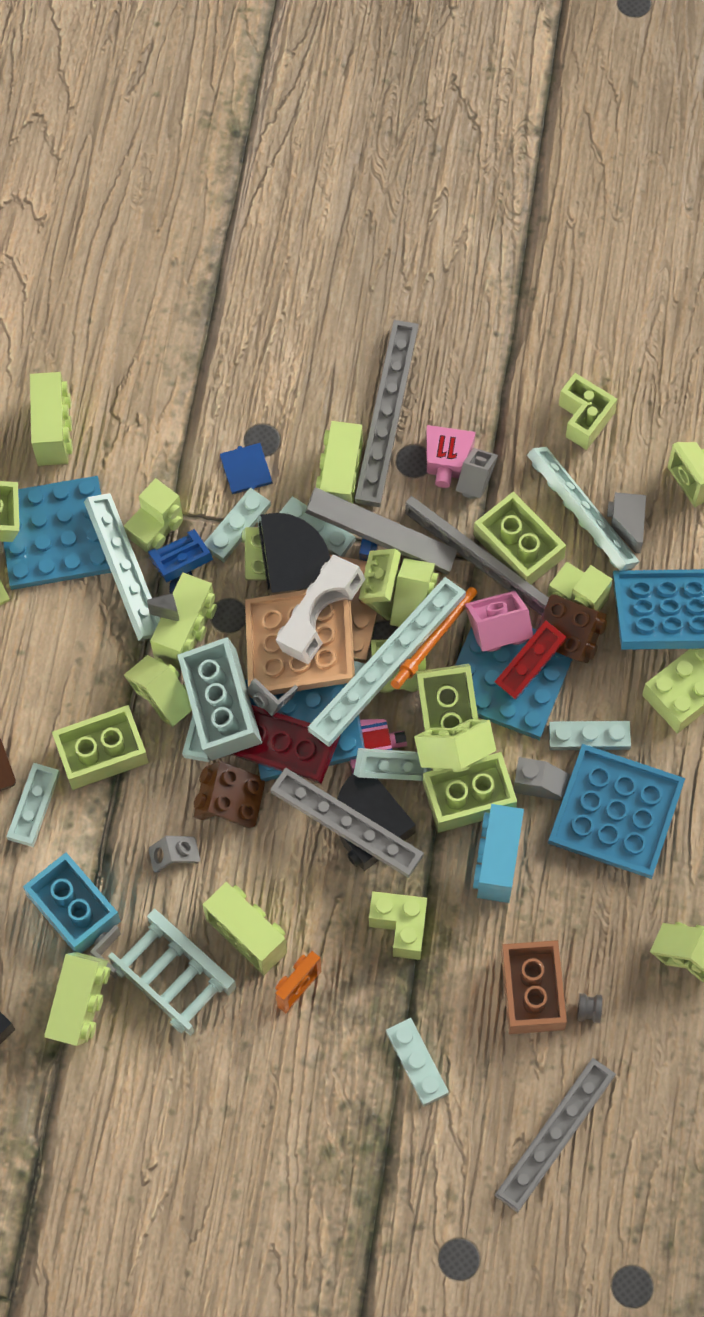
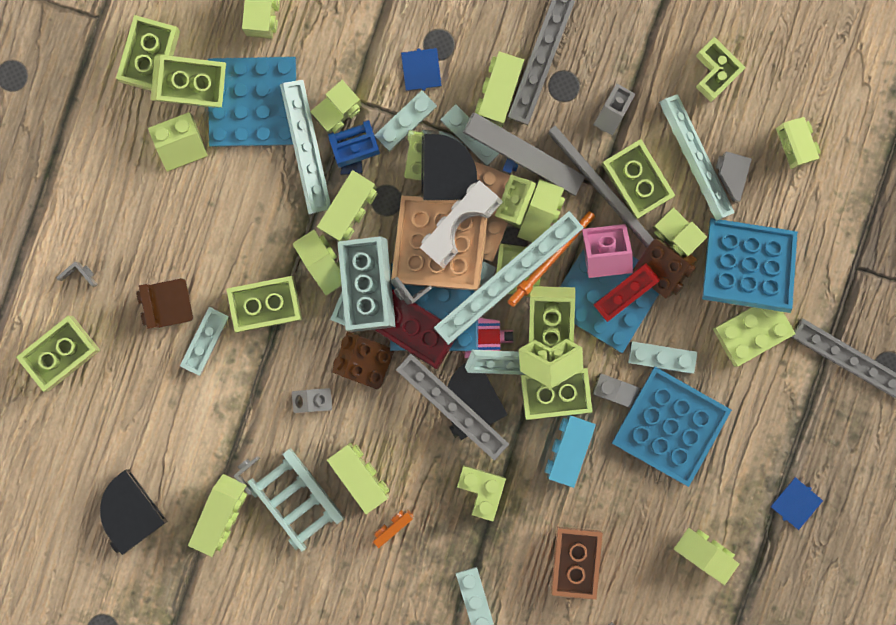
camera: 10 degrees right, 20 degrees up
(71, 903) = (224, 432): medium azure brick -> none
(163, 607) = (333, 202): flat silver slope -> none
(446, 452) = (592, 87): bright pink torso -> none
(589, 1008) = (617, 584): flat silver wheel -> none

